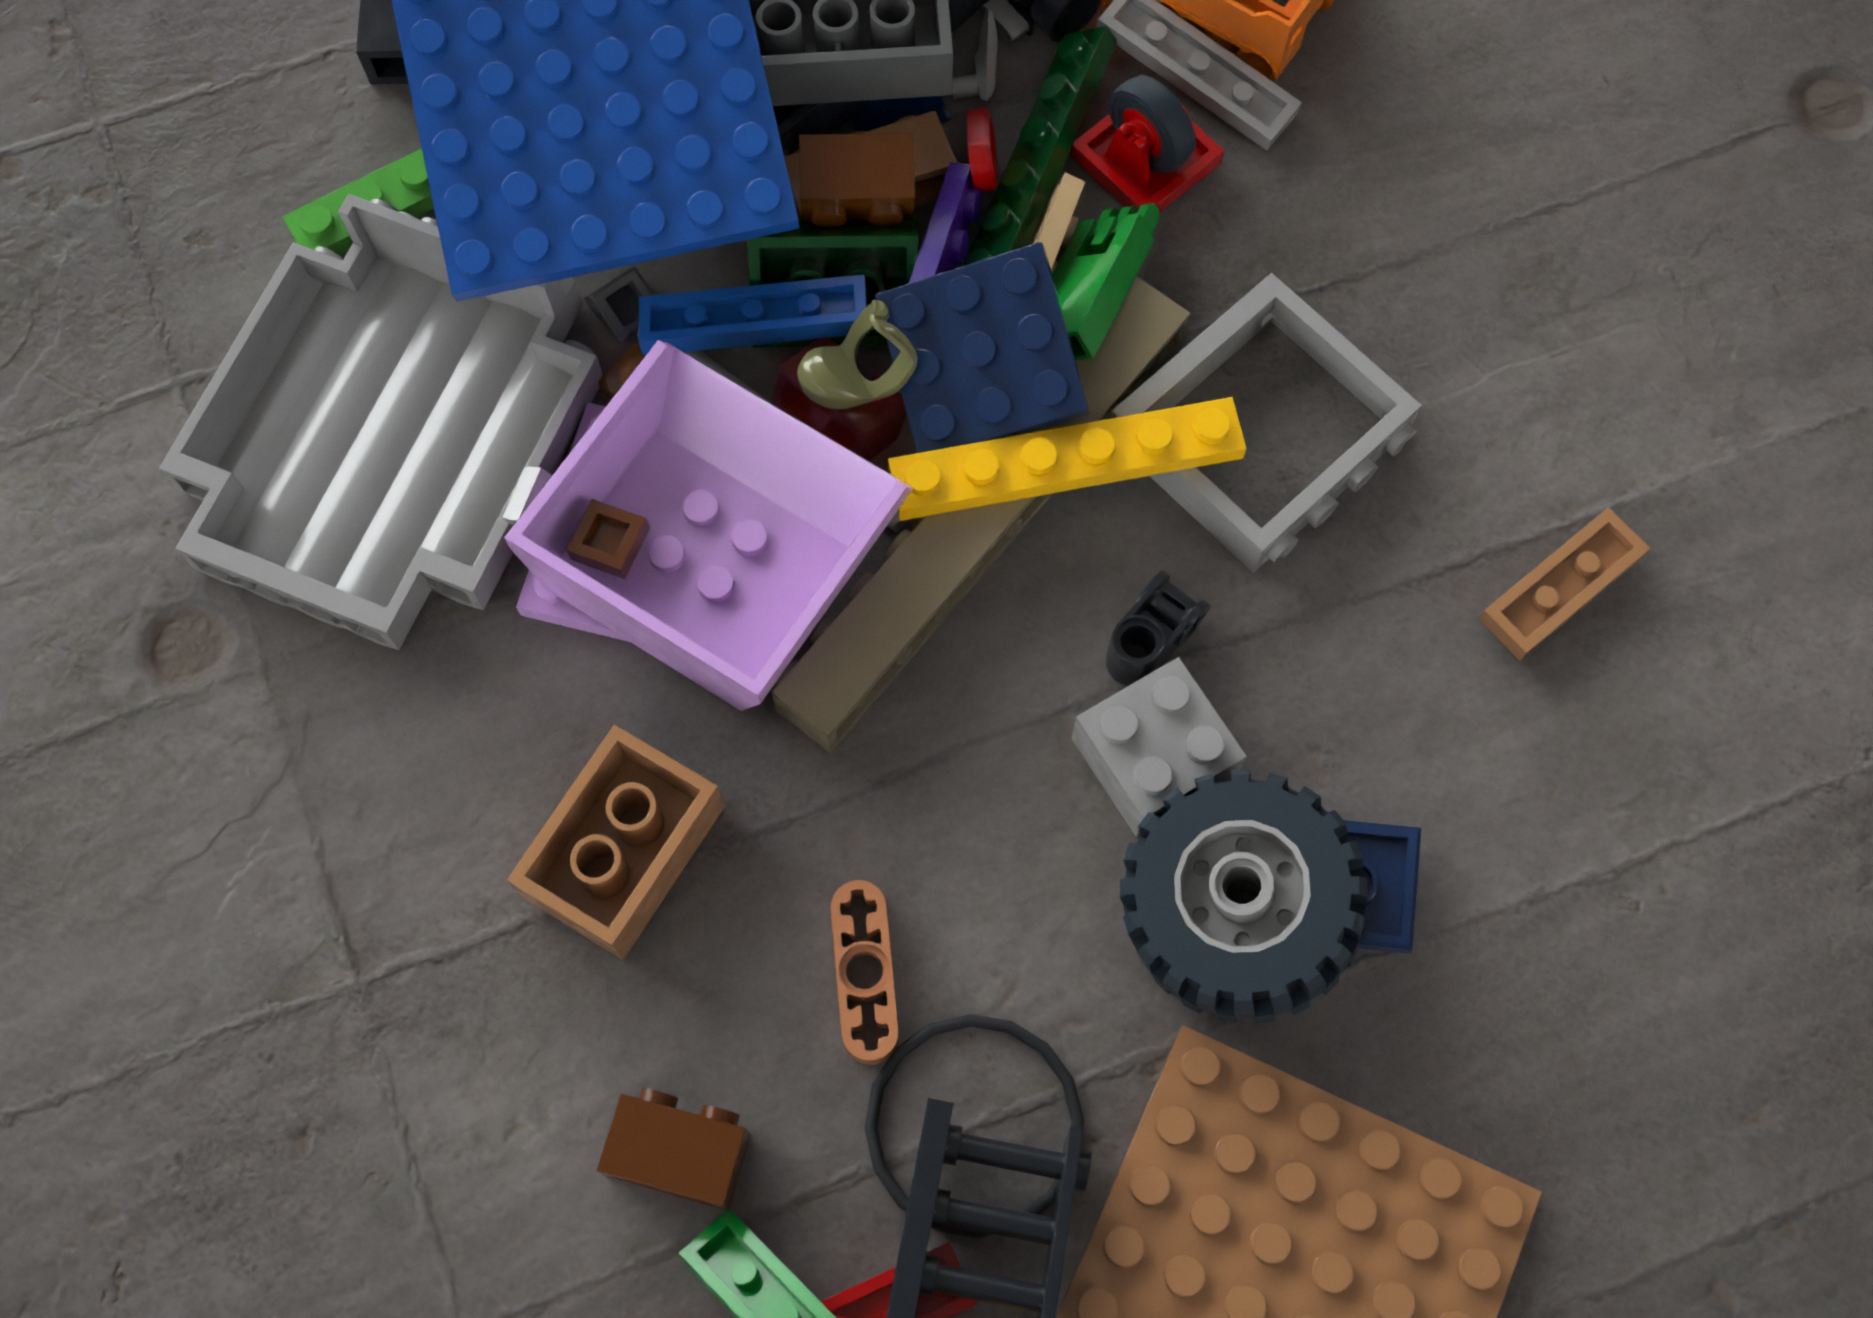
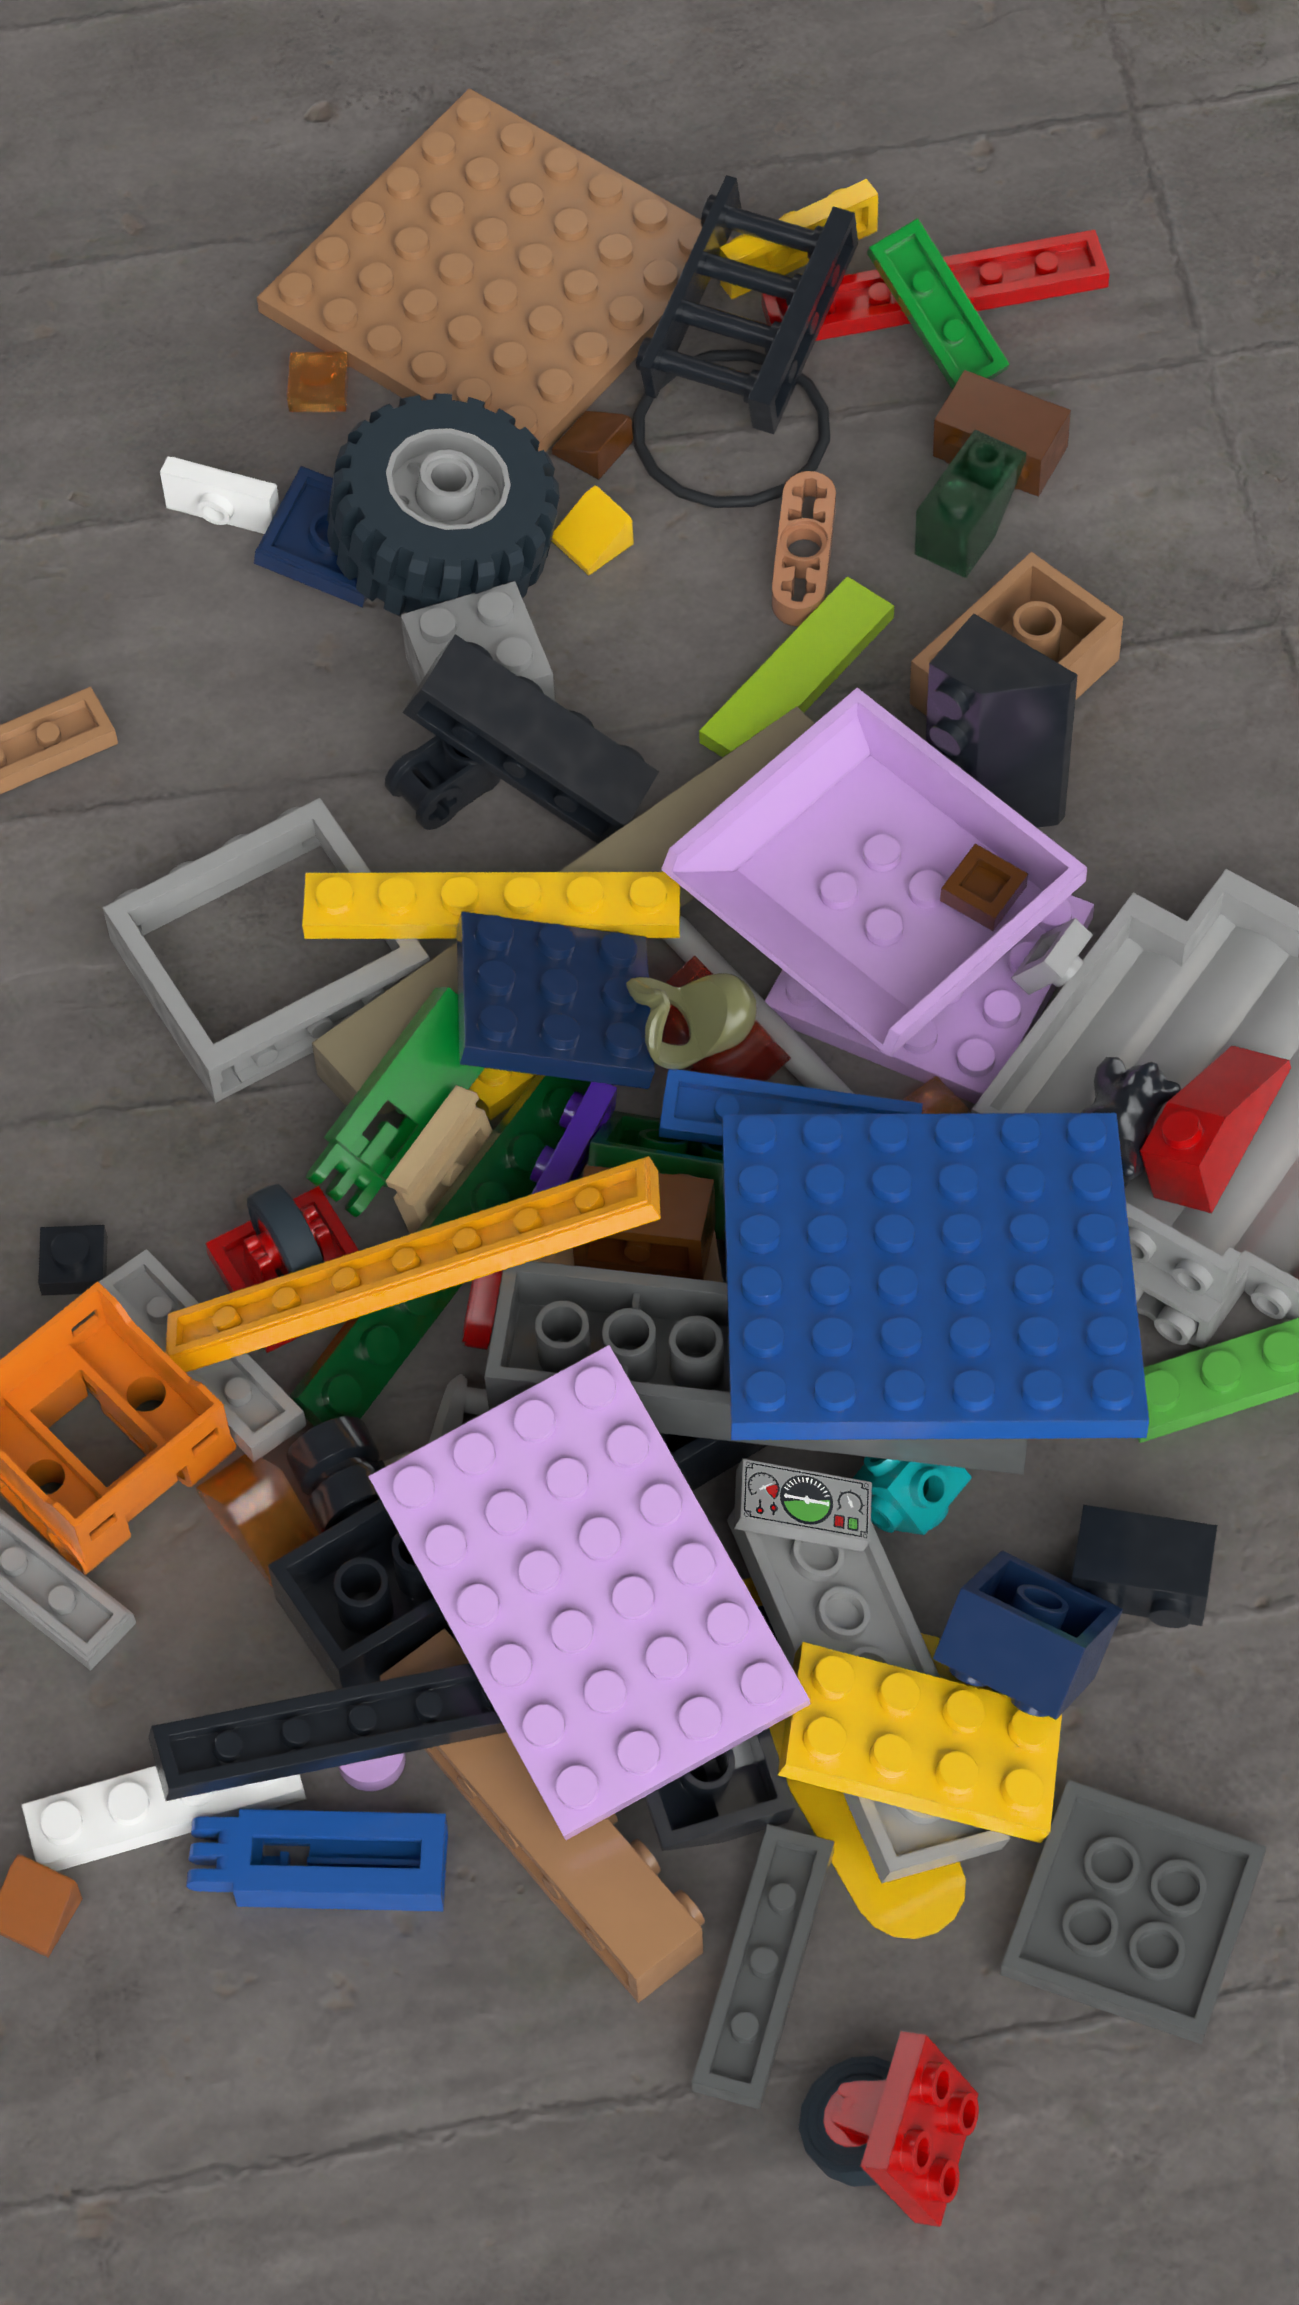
camera: 165 degrees left, 10 degrees down
(378, 382) = (1210, 1127): none -> red slope
(464, 346) = (1137, 1100): none -> black animal
(611, 667) = (1004, 718): none -> black slope
(694, 1039) = (968, 503): none -> clear green slope
(841, 819) = (800, 666): none -> lime tile
(1022, 59) = (415, 1265): none -> light orange tile
(1079, 631) = (530, 740): none -> black brick
(1087, 947) = (594, 531): none -> yellow slope
(1118, 1070) = (595, 441): none -> reddish brown slope
(1330, 140) = (71, 1258): none -> black plate
(1435, 1095) = (318, 382): none -> clear orange plate
(1483, 906) = (219, 495): none -> white plate

